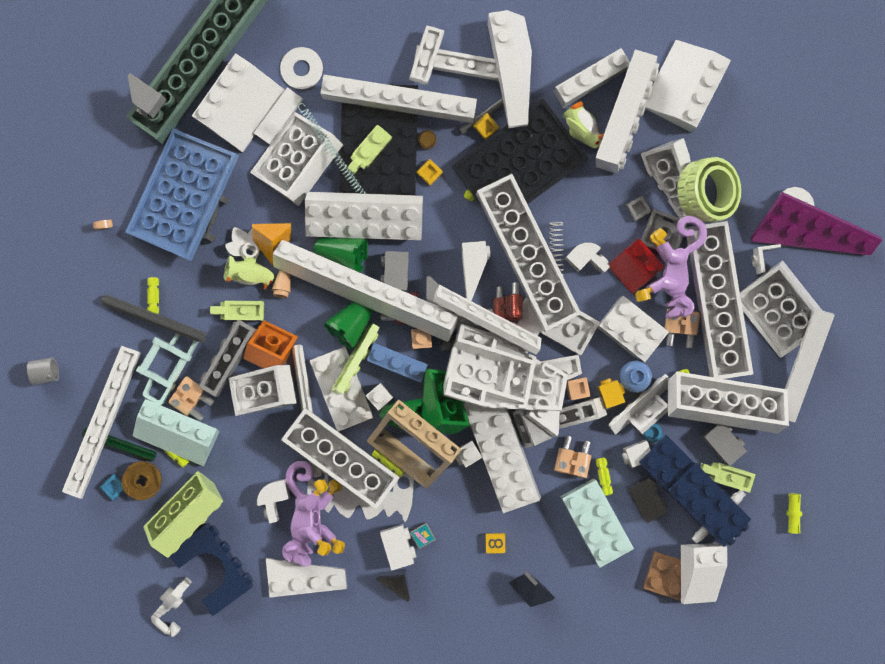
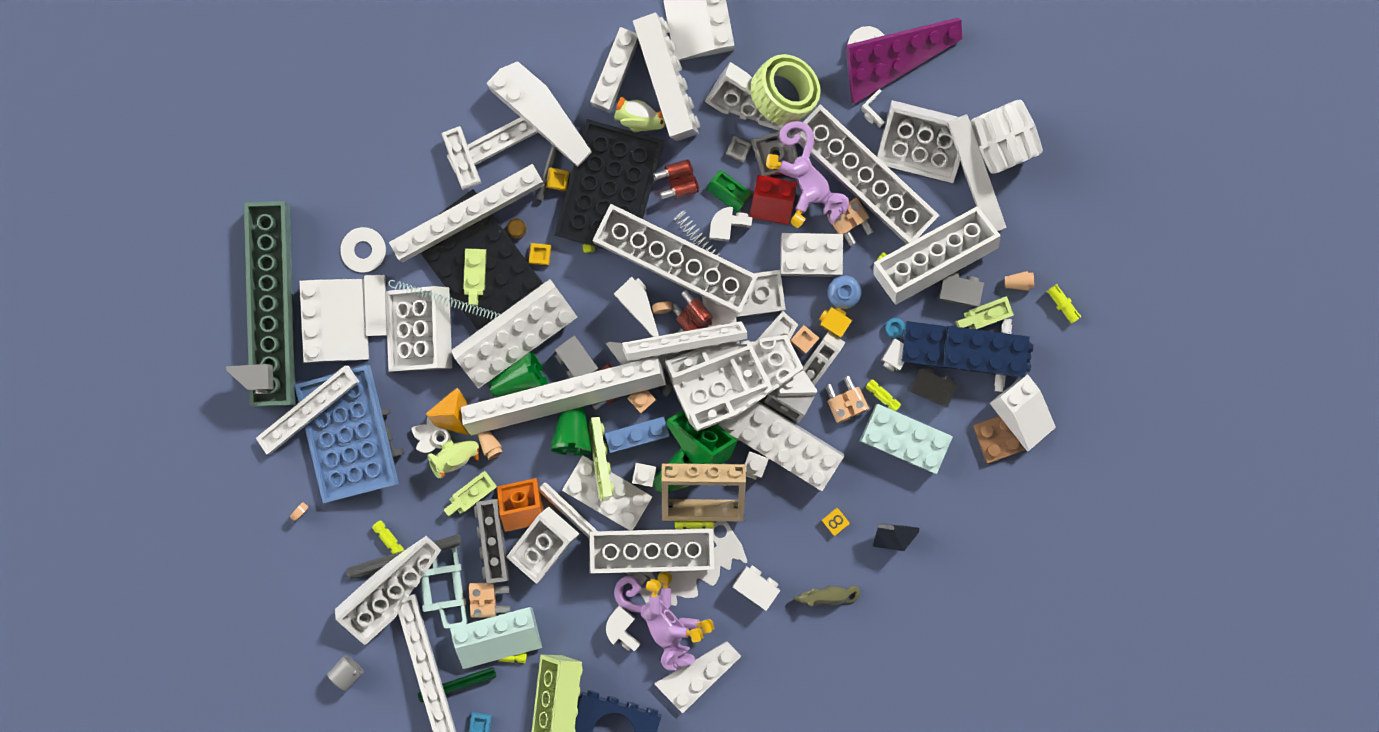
camera: 30 degrees left, 0 degrees up
(118, 334) = (383, 594): none -> white wedge
(132, 474) = (500, 711): pearl gold plate -> none
(167, 153) = (307, 410): none -> white plate
(396, 581) = (778, 617): clear smoke slope -> none
(422, 535) = (770, 562): tile -> none
(448, 595) = (829, 595): none -> olive animal
(490, 282) = (662, 307): none -> light nougat tile
(578, 196) = (681, 180): none -> clear red piece
(606, 233) = (728, 191): none -> green slope
(644, 410) = (873, 314): white bracket -> none
(775, 471) = (1020, 281): none -> light nougat cone
(850, 354) = (1006, 136): none -> white wheel

